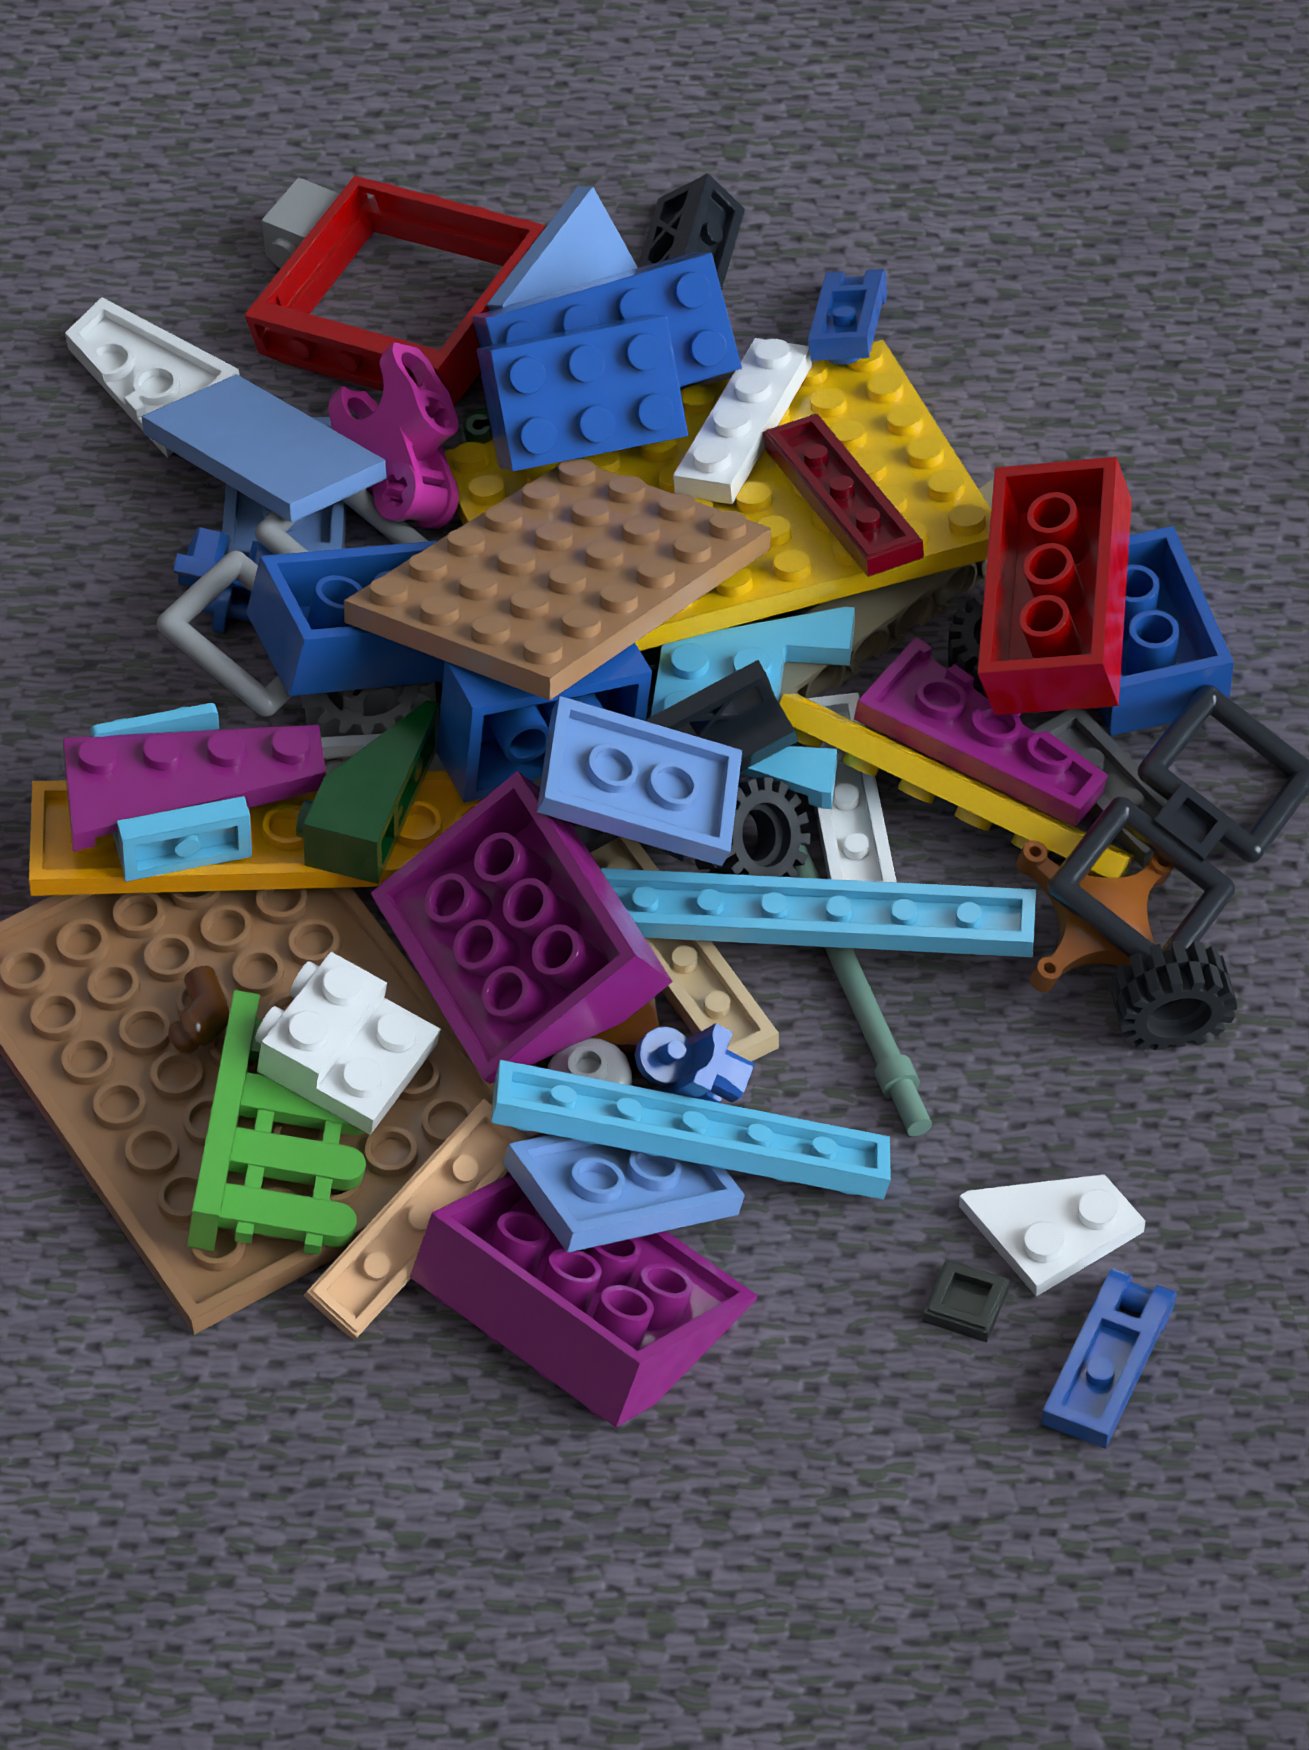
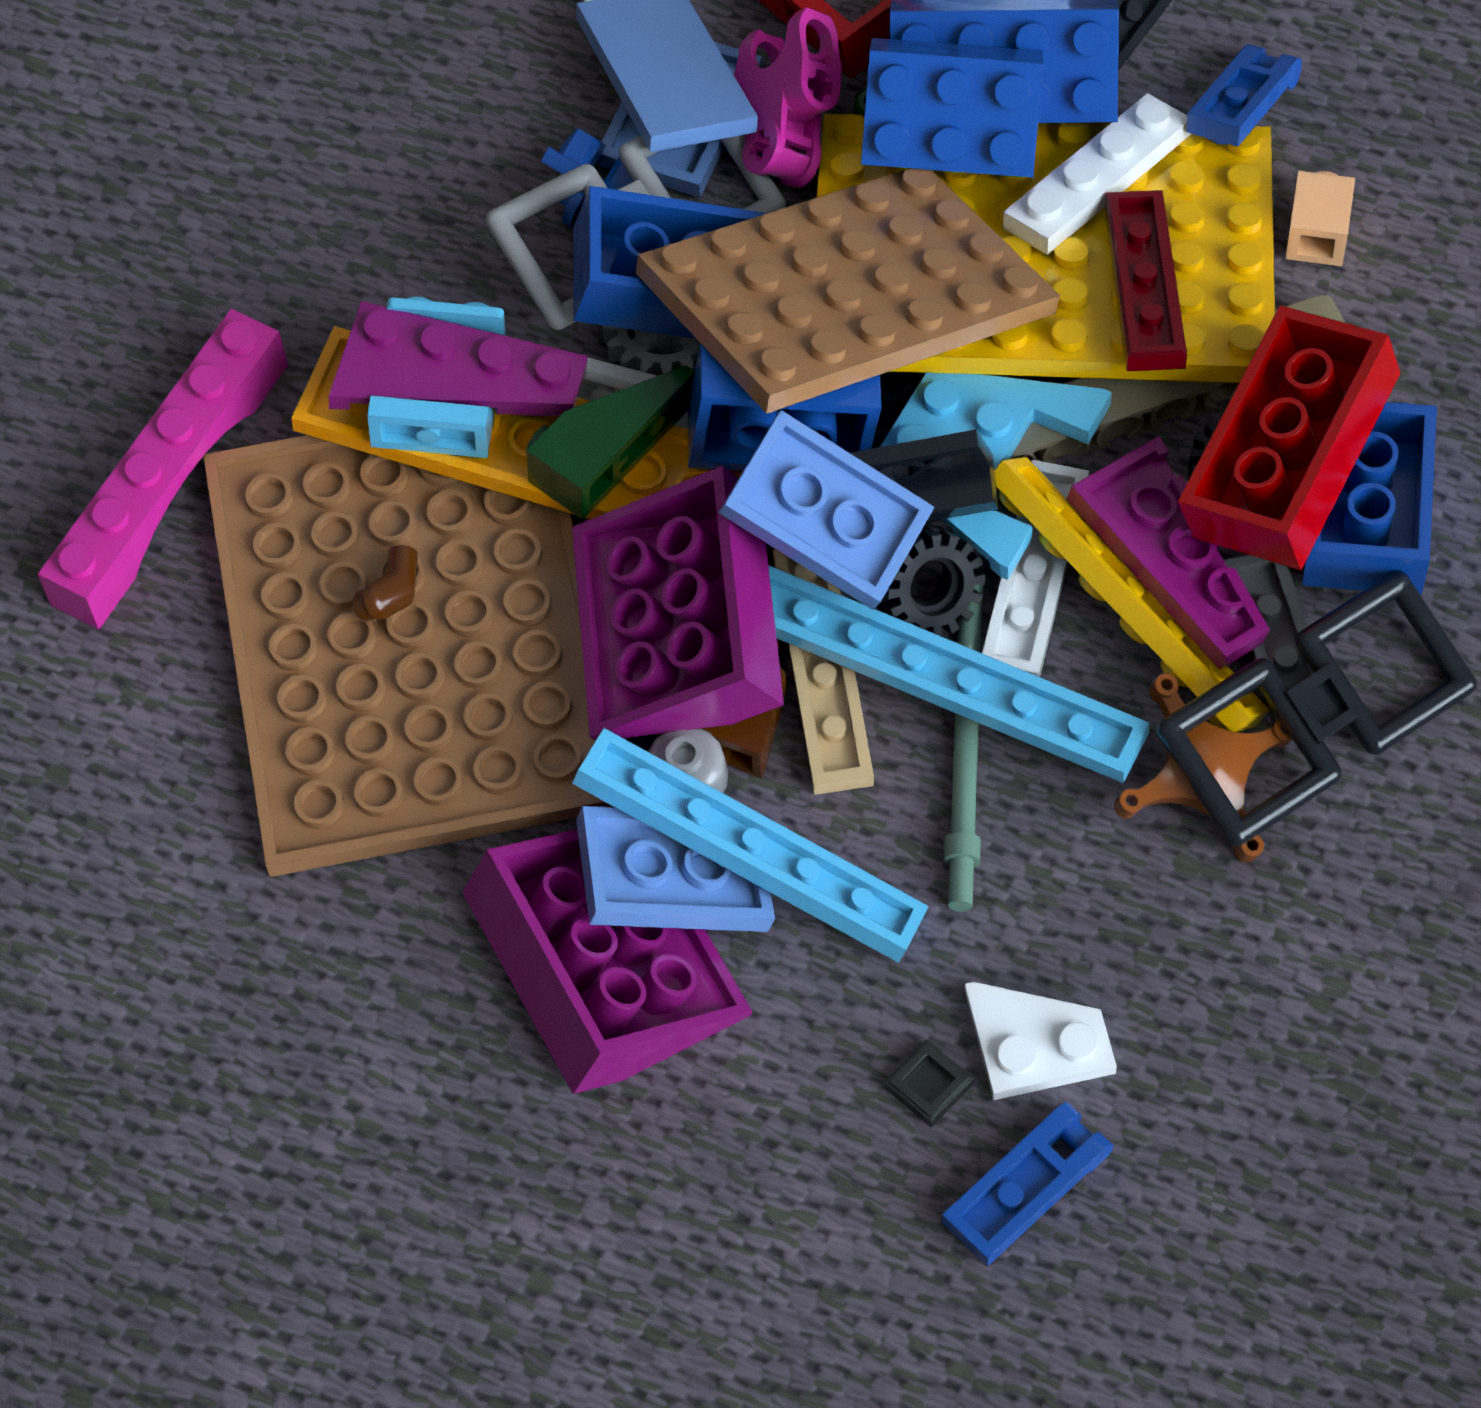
camera: 25 degrees right, 10 degrees up
(269, 1154) = (381, 738): bright green fence -> none
(344, 1042) = (488, 661): white plate -> none
(385, 1251) = (445, 864): light nougat tile -> none
(693, 1066) = (774, 784): blue hips -> none
(971, 390) = (1320, 218): none -> light nougat brick
(1173, 996) = (1232, 864): black tyre -> none

